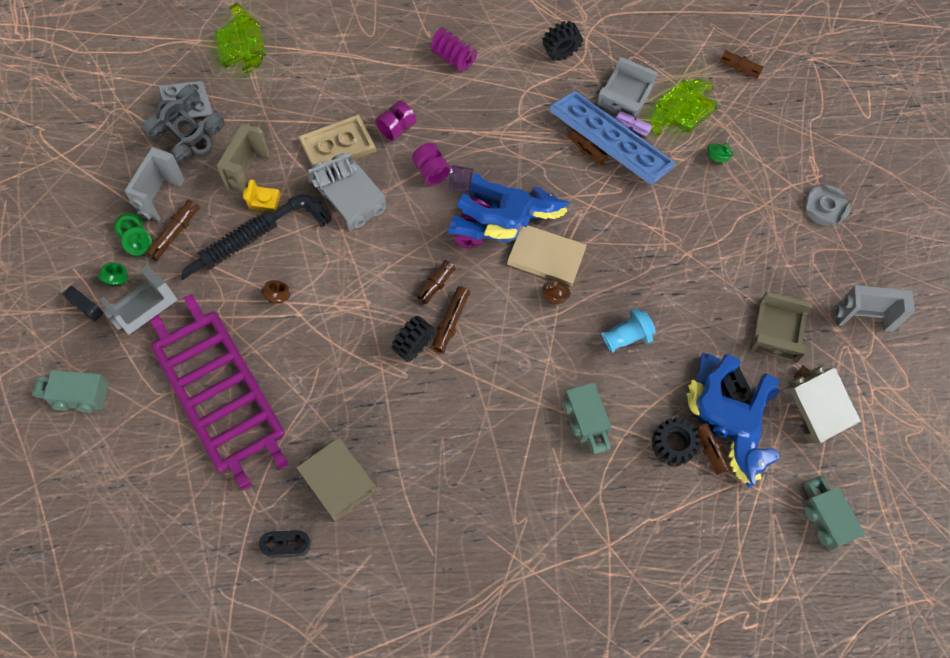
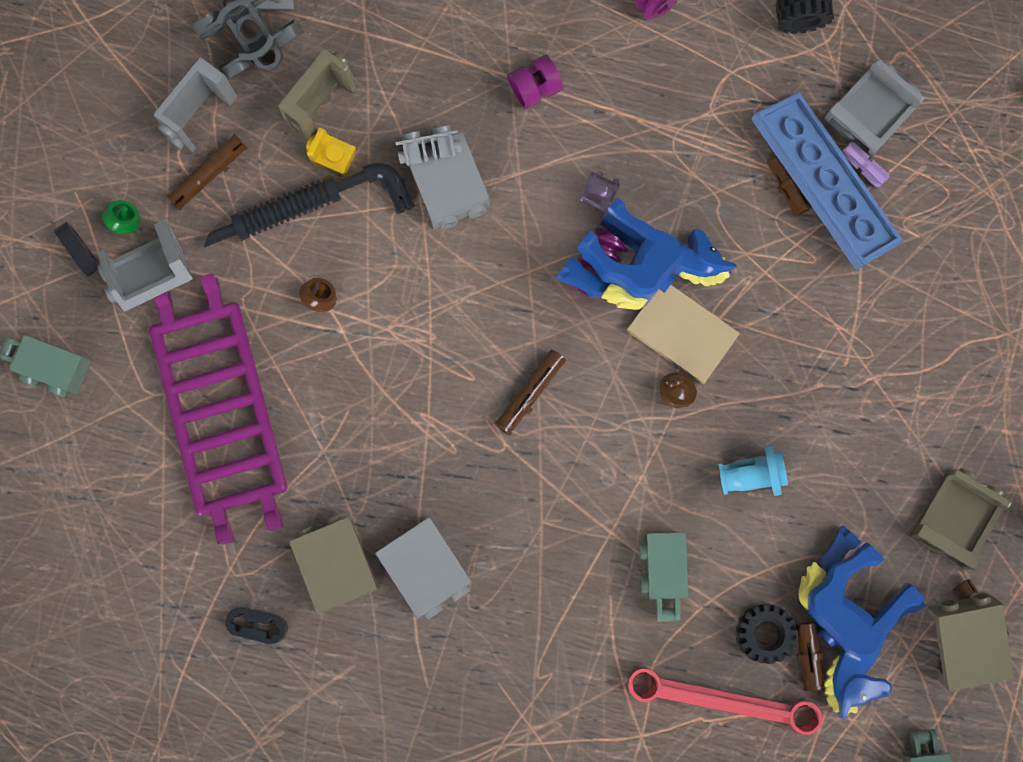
camera: 25 degrees right, 15 degrees up
(126, 221) = (153, 152): green hat -> none
(136, 241) = (158, 178): green hat -> none
(338, 138) = (449, 94): tan tile -> none
(408, 462) = (424, 569): none -> light grey panel
(412, 338) = (473, 410): black tyre -> none
(432, 164) = (566, 165): magenta wheel -> none
(435, 282) = (525, 334): reddish brown pin -> none
(662, 499) = (726, 701): none -> coral piece
(683, 106) = (946, 156): clear neon green plate -> none
(720, 152) = (971, 241): green hat -> none
(736, 382) = (878, 581): black beam -> none

